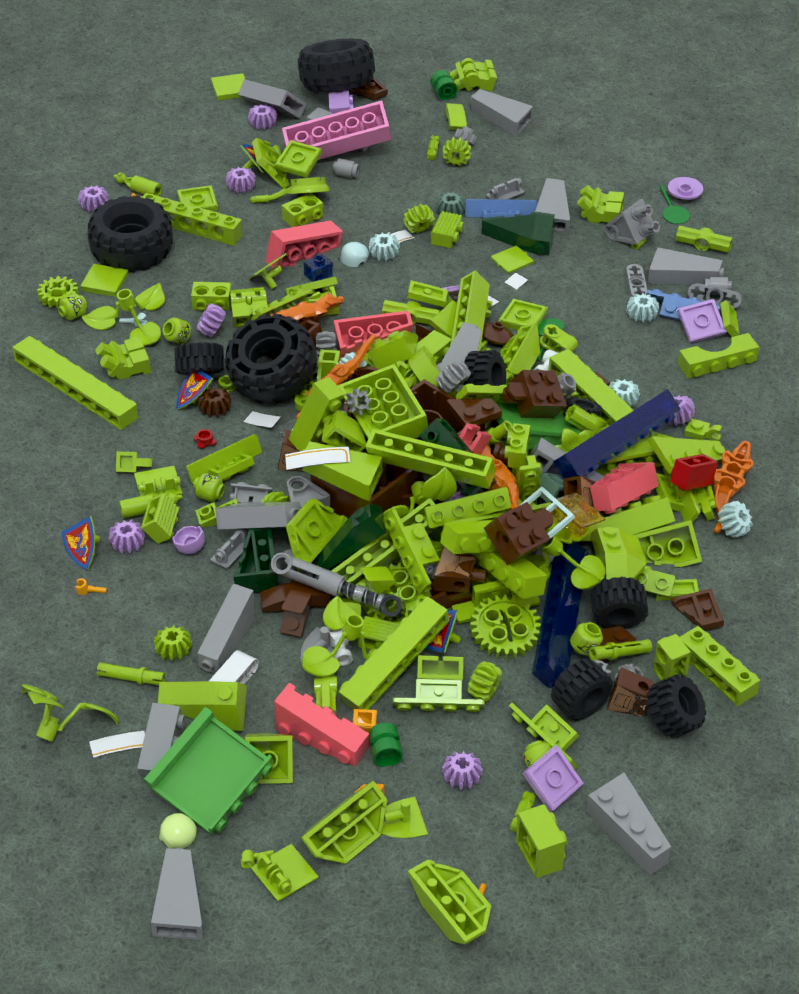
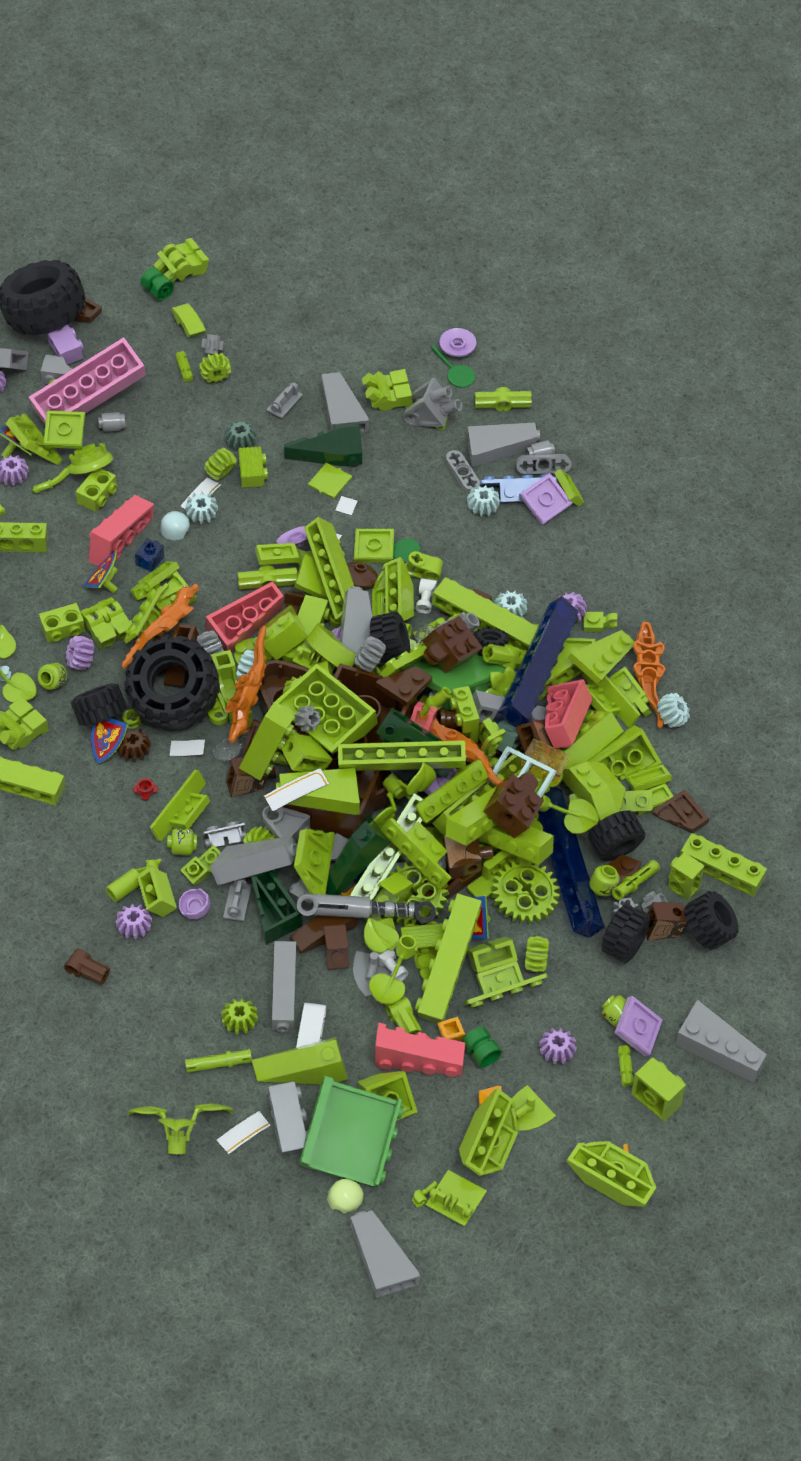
camera: 25 degrees left, 10 degrees up
(60, 557) = (83, 965): none -> reddish brown piece
(81, 542) = (97, 942): shield -> none
(83, 588) = (125, 988): light orange hand -> none
(129, 462) = (89, 840): lime plate -> none
(158, 481) = (128, 852): lime hinge -> none
(498, 207) = (292, 426): medium blue bracket -> none
(502, 111) = (231, 299): light grey slope -> none
(549, 727) = (610, 977): lime bracket -> none
(683, 570) = (648, 778): none -> lime tile
(693, 472) = (621, 676): red brick -> none
(697, 361) = (561, 546): lime arch -> none

